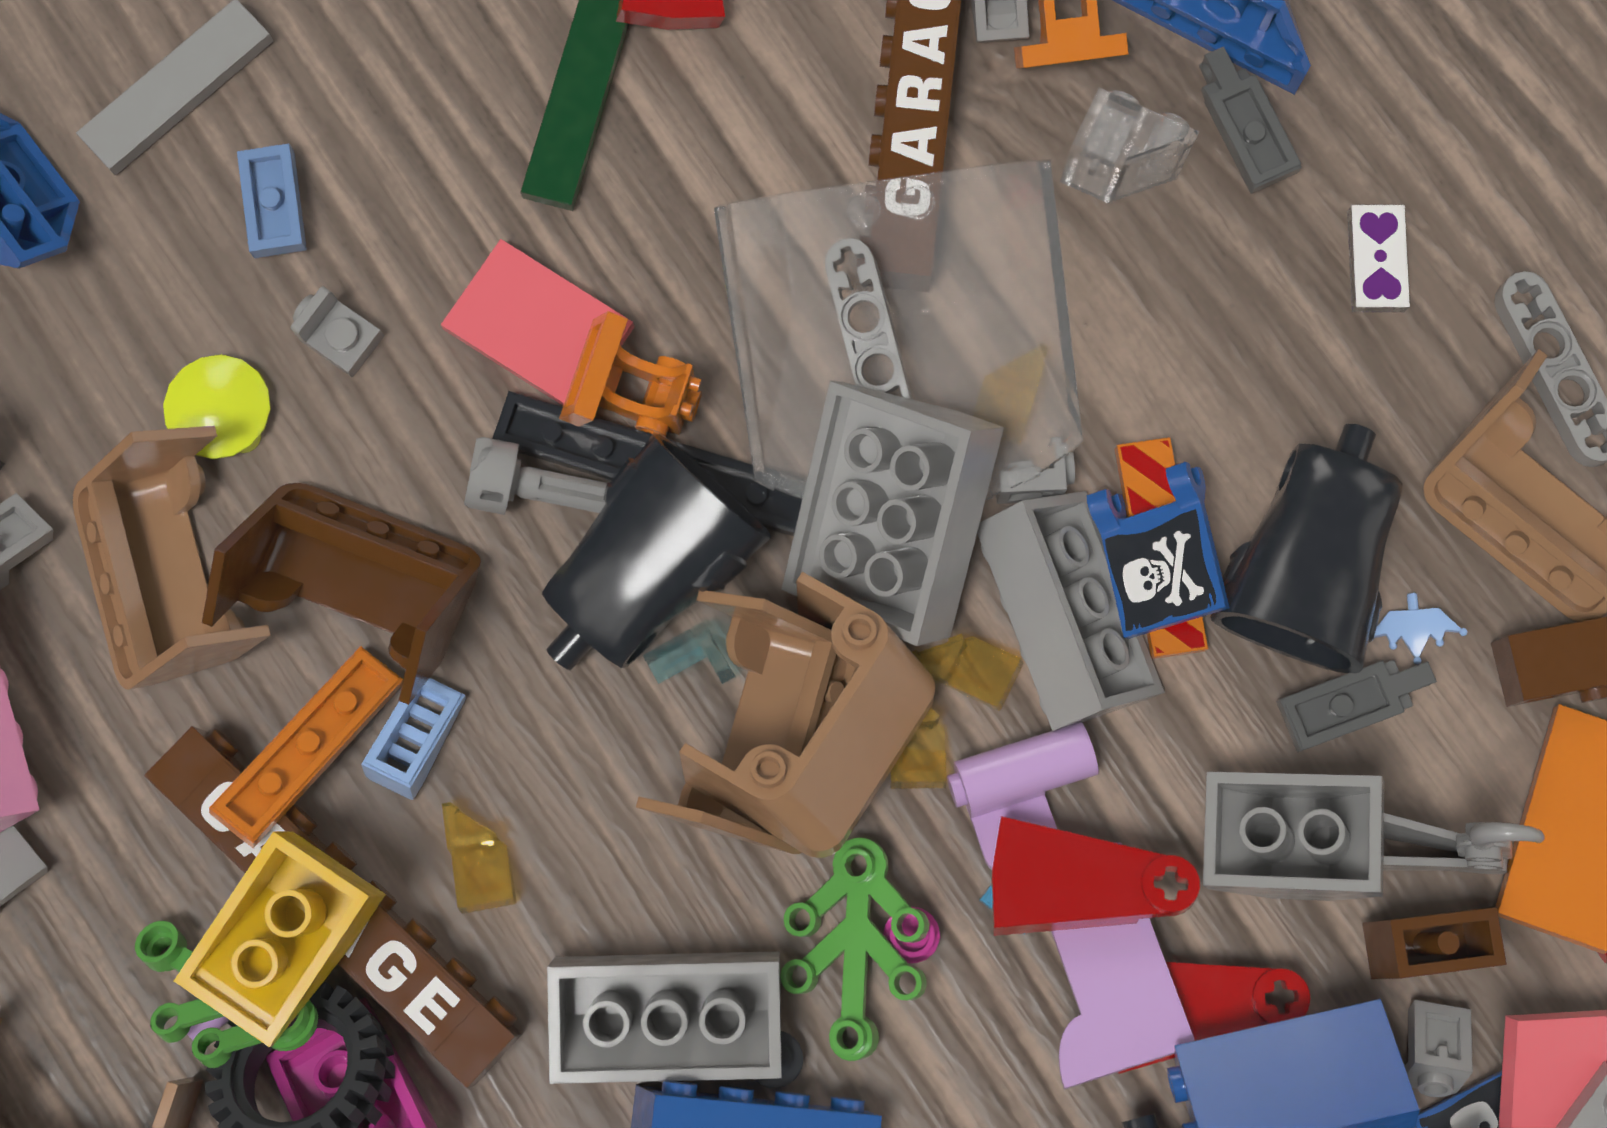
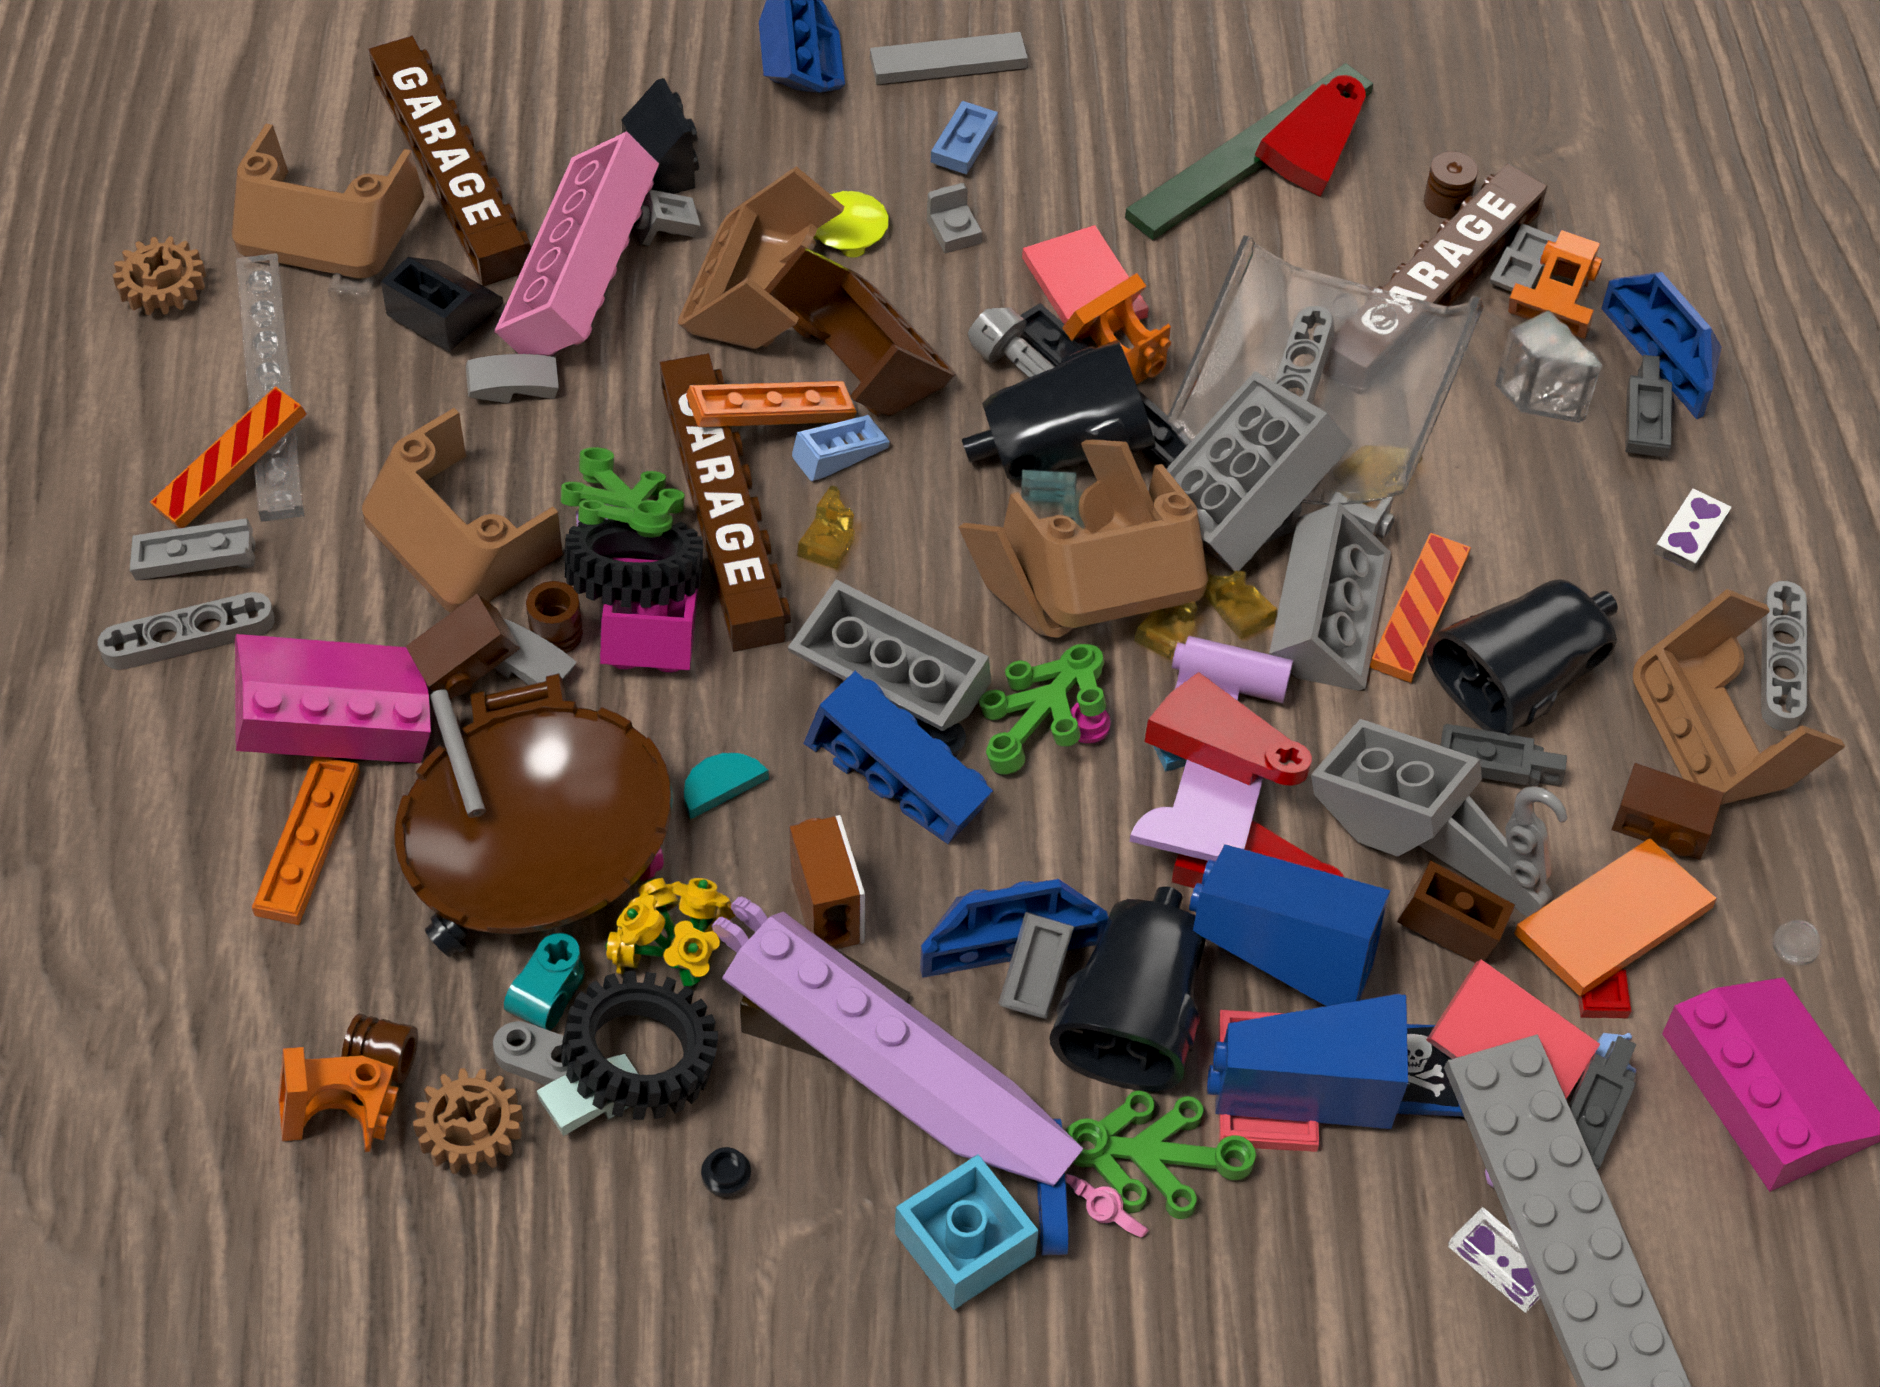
camera: 30 degrees right, 25 degrees down
(278, 936) = (686, 462): yellow slope -> none
(1162, 558) = (1415, 596): flag -> none
(1416, 627) = (1573, 743): light blue piece -> none
(1438, 1048) = (1420, 979): light grey bracket -> none

